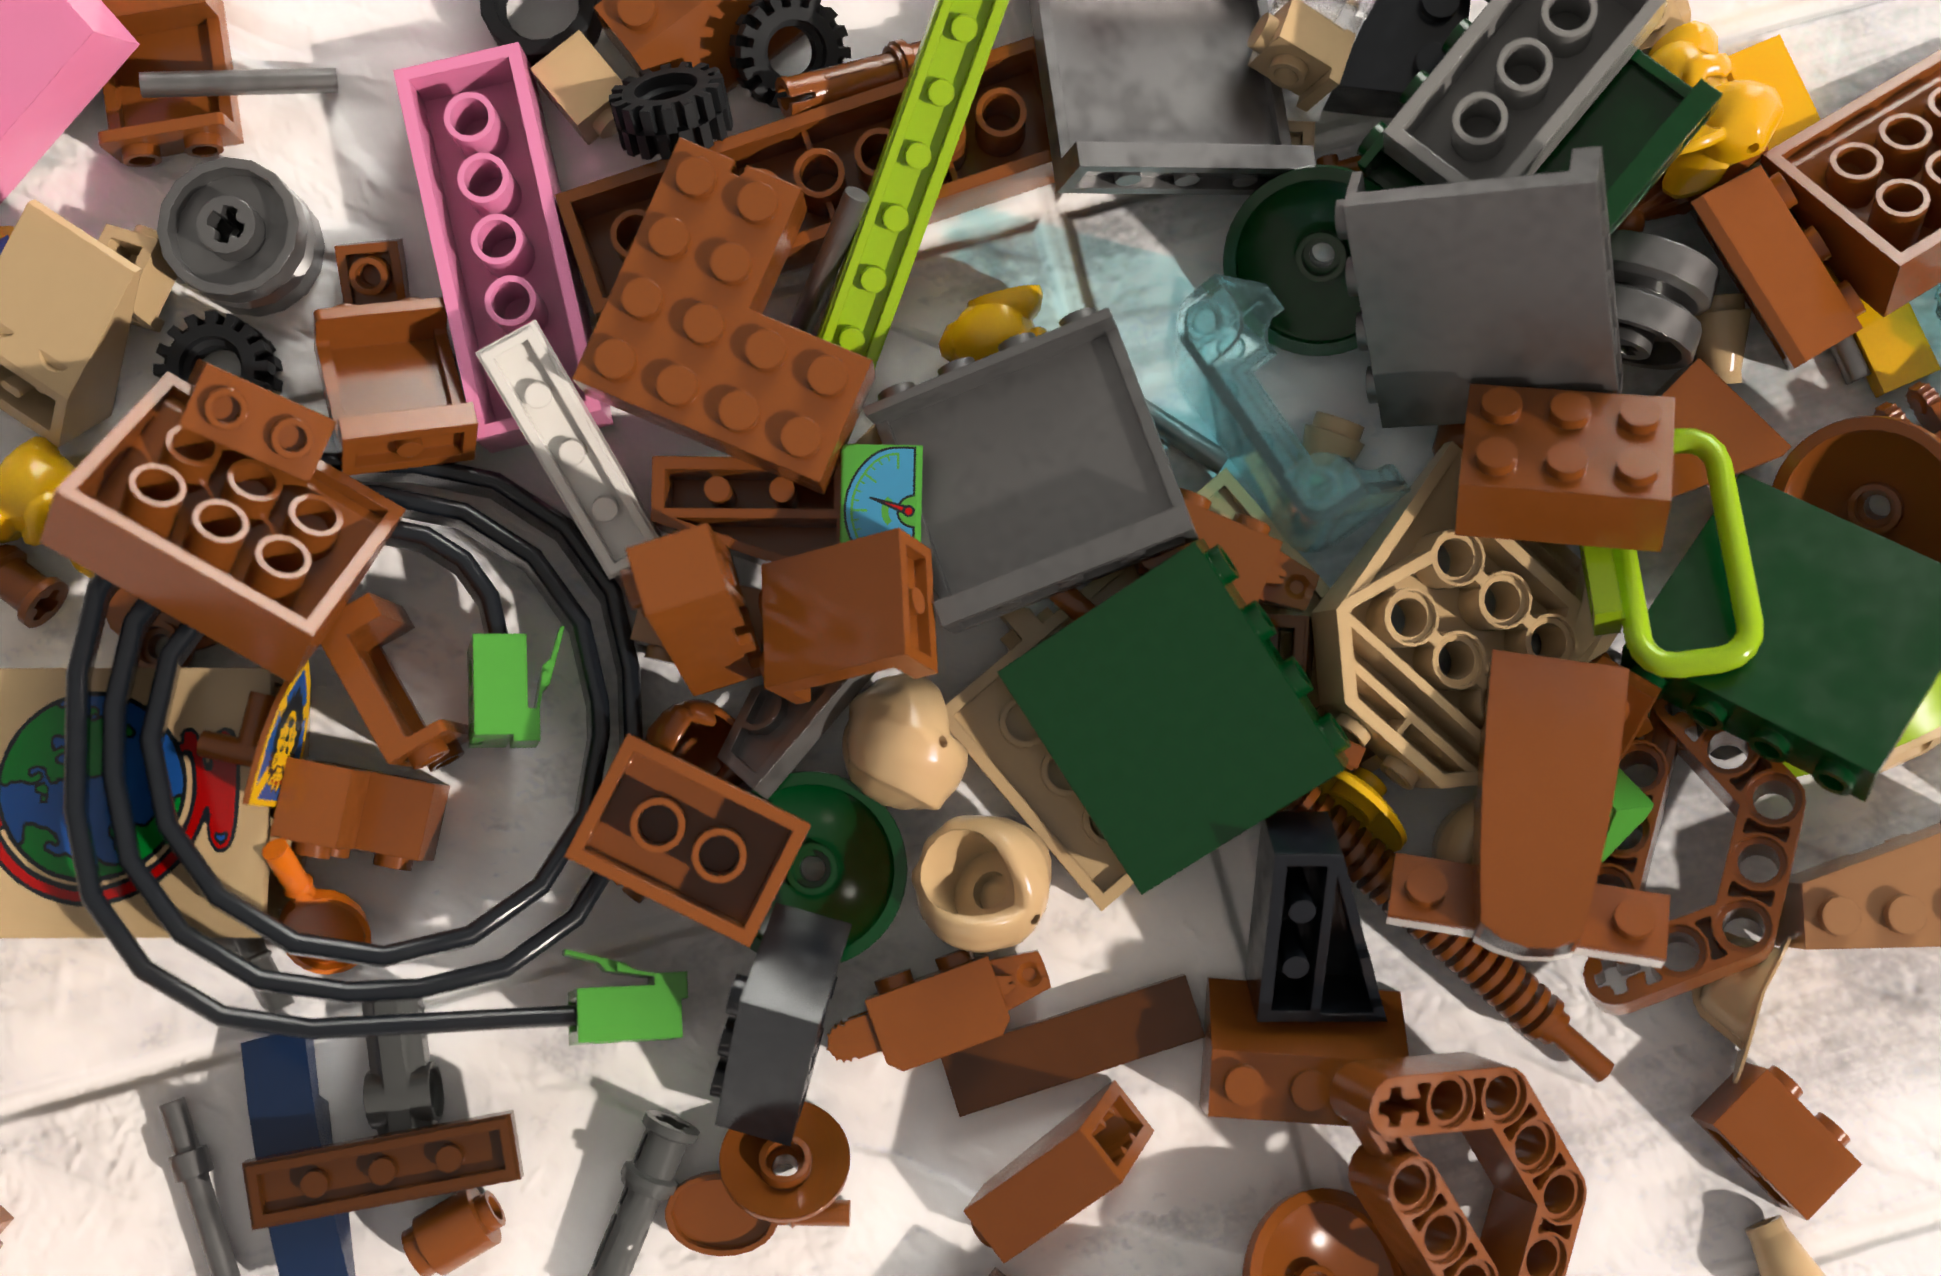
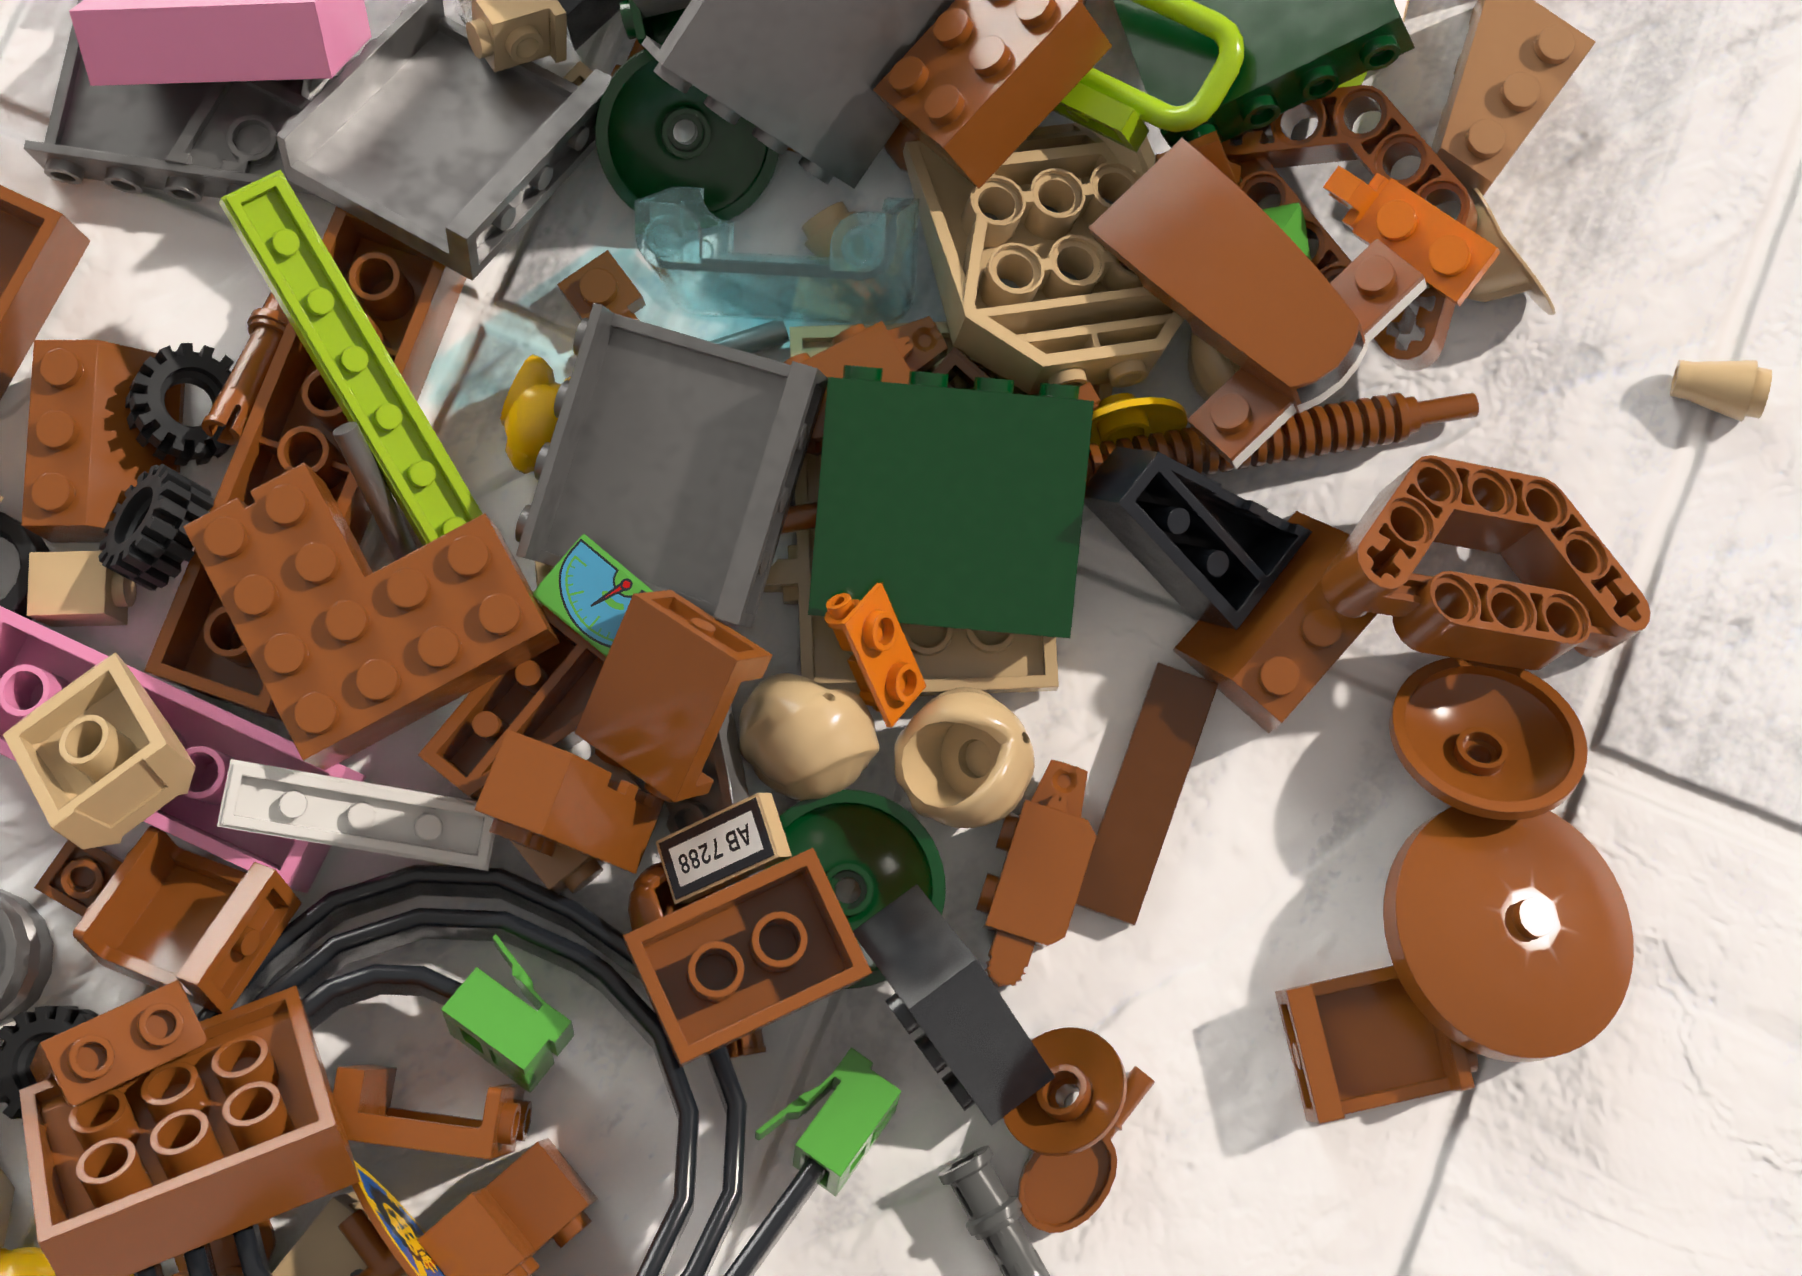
camera: 50 degrees left, 5 degrees down
(461, 217) = (100, 756): none -> tan slope
(761, 752) = (723, 848): none -> tile
(1011, 750) = (881, 654): none -> orange hinge
(1060, 1173) = (1240, 879): dark orange slope -> none
(1137, 298) = (602, 283): none -> dark orange plate
(1701, 921) = (1416, 230): none -> orange hinge
(1777, 1139) = (1620, 317): dark orange brick -> none

